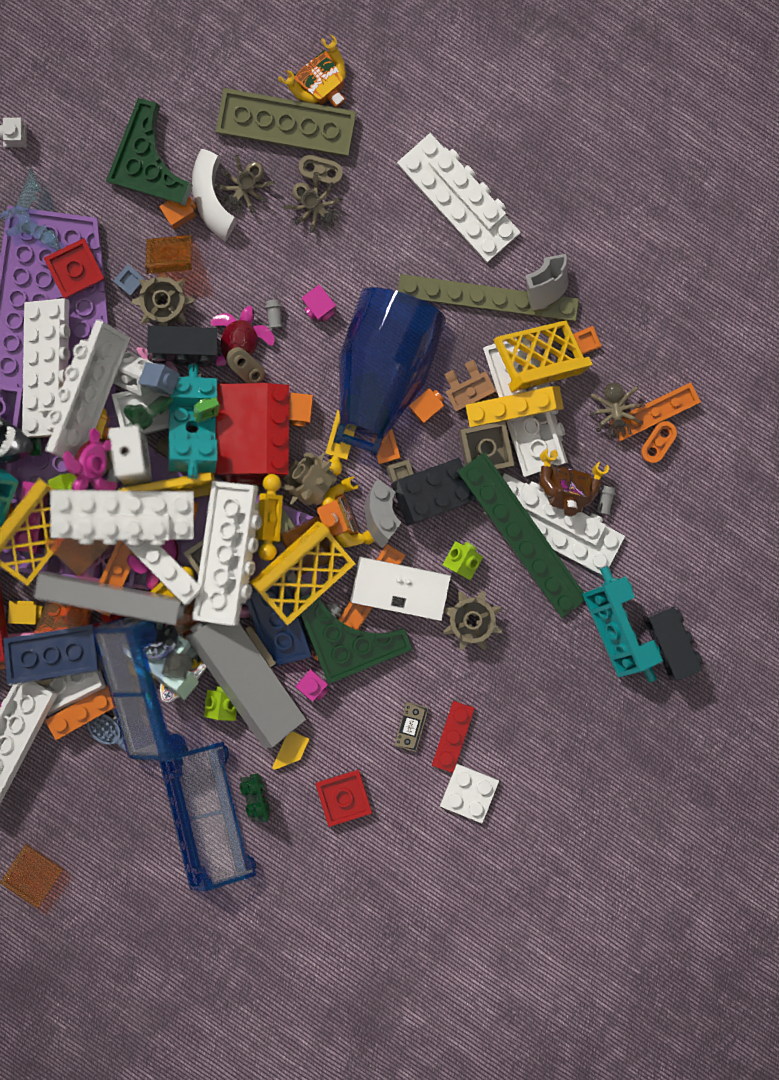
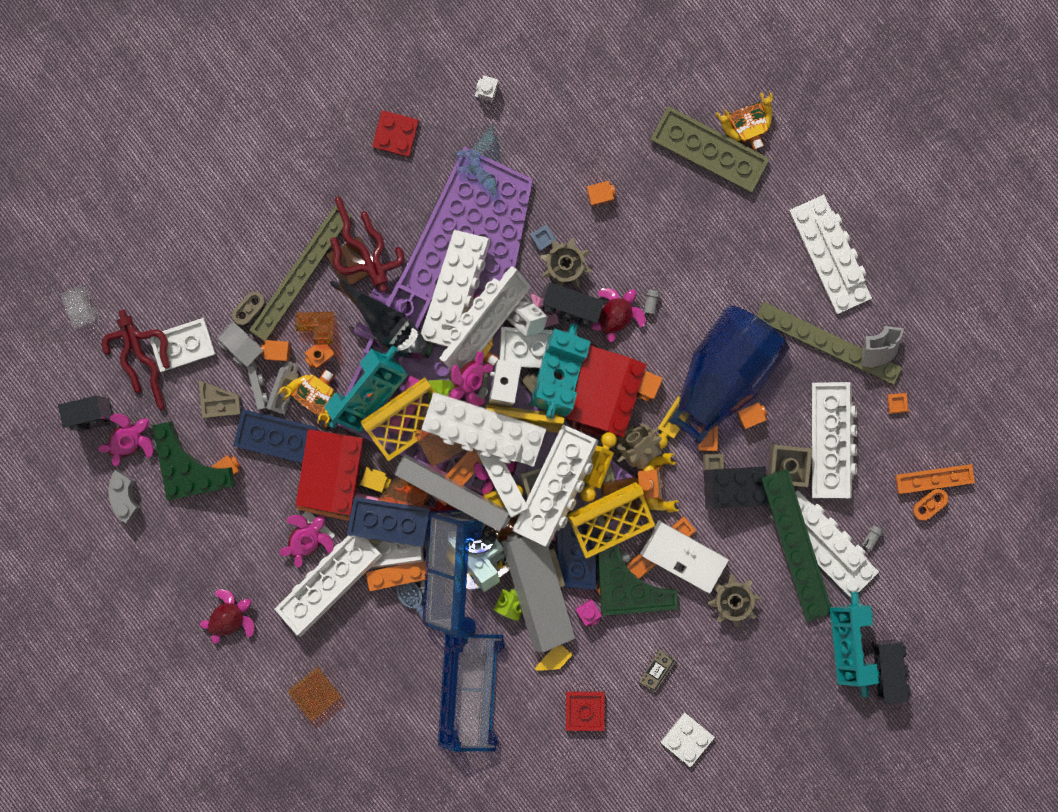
camera: 20 degrees right, 0 degrees up
(74, 268) = (502, 215): red plate -> none
(139, 162) = (581, 147): dark green plate -> none
(143, 417) = (525, 354): dark green hinge -> none
(158, 378) = (545, 327): sand blue brick -> none
(169, 254) = (582, 227): clear orange plate -> none
(176, 665) = (488, 563): clear smoke plate -> none
(204, 195) = (625, 189): white brick -> none
(206, 409) = (575, 364): bright green plate -> none
(246, 367) = (615, 339): dark tan plate -> none
(247, 182) = (662, 189): animal -> none
(255, 807) = (513, 688): dark green hinge -> none
(312, 202) = (710, 221): animal -> none
(319, 304) = (690, 306): dark pink brick -> none
(322, 167) = (727, 194): dark tan plate -> none
(380, 514) = (686, 491): light grey brick -> none
(453, 736) = (688, 689): red plate -> none
(463, 560) = (742, 549): lime brick -> none
(471, 390) = (790, 414): medium nougat plate -> none
(515, 406) = (823, 439): yellow brick -> none
(544, 374) = (873, 420): yellow fence -> none
(568, 487) = (845, 518): reddish brown torso -> none
(616, 406) = (905, 465): animal -> none

